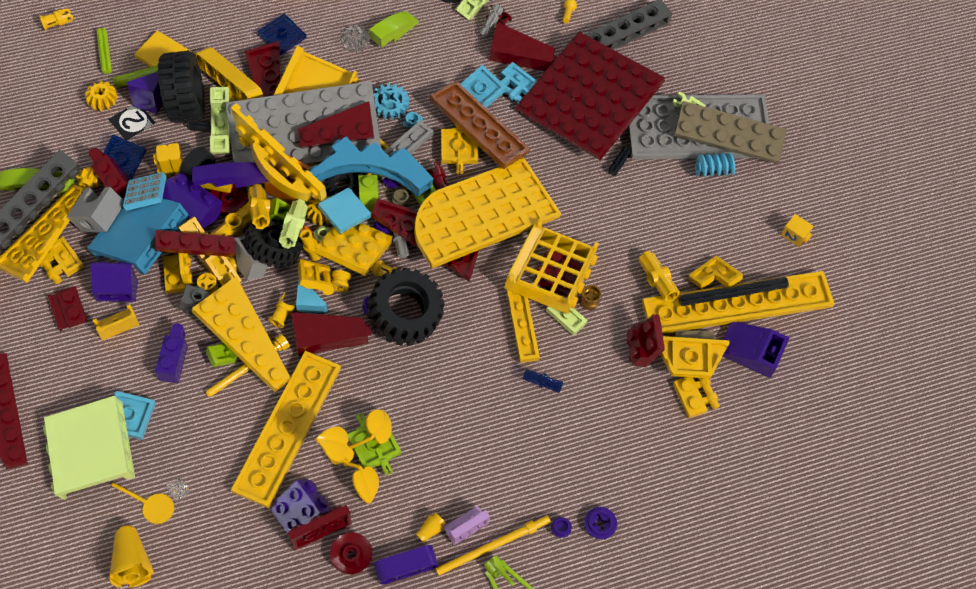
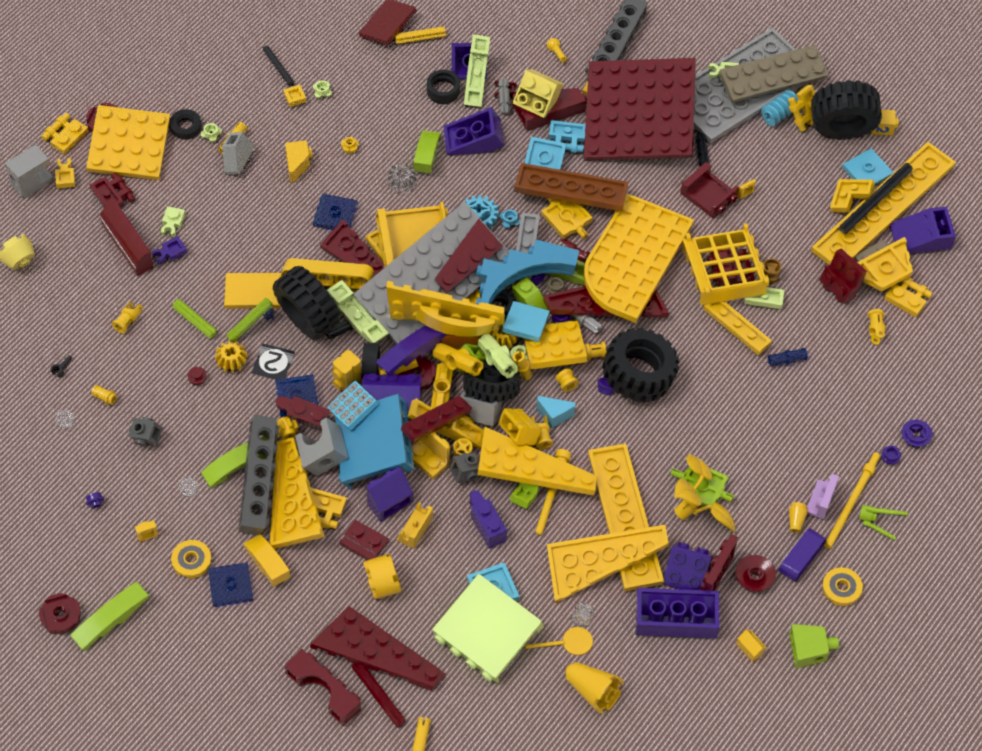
camera: 30 degrees left, 5 degrees down
(47, 346) = (382, 576): none -> yellow brick
(65, 95) = (197, 375): none -> dark red plate
(146, 93) = (274, 327): dark purple slope -> none
(224, 446) = (591, 559): none -> yellow wing
(251, 542) = (677, 613): none -> dark purple slope
(264, 294) = (519, 426): none -> yellow brick
(309, 276) = (547, 387): yellow plate -> none
(328, 332) = (591, 426): dark red slope -> none
(443, 37) = (474, 133): none -> dark purple slope
(515, 31) = (537, 92): none -> light yellow slope
(595, 197) = (708, 191): none -> dark red panel
(628, 215) = (746, 188): none -> yellow slope
(642, 406) = (876, 327): none -> yellow piece
(659, 276) = (810, 221): yellow piece -> none
(740, 177) = (804, 103): none -> yellow plate
(751, 261) = (868, 167): none -> medium azure plate
(764, 198) = (846, 109): none -> black tyre

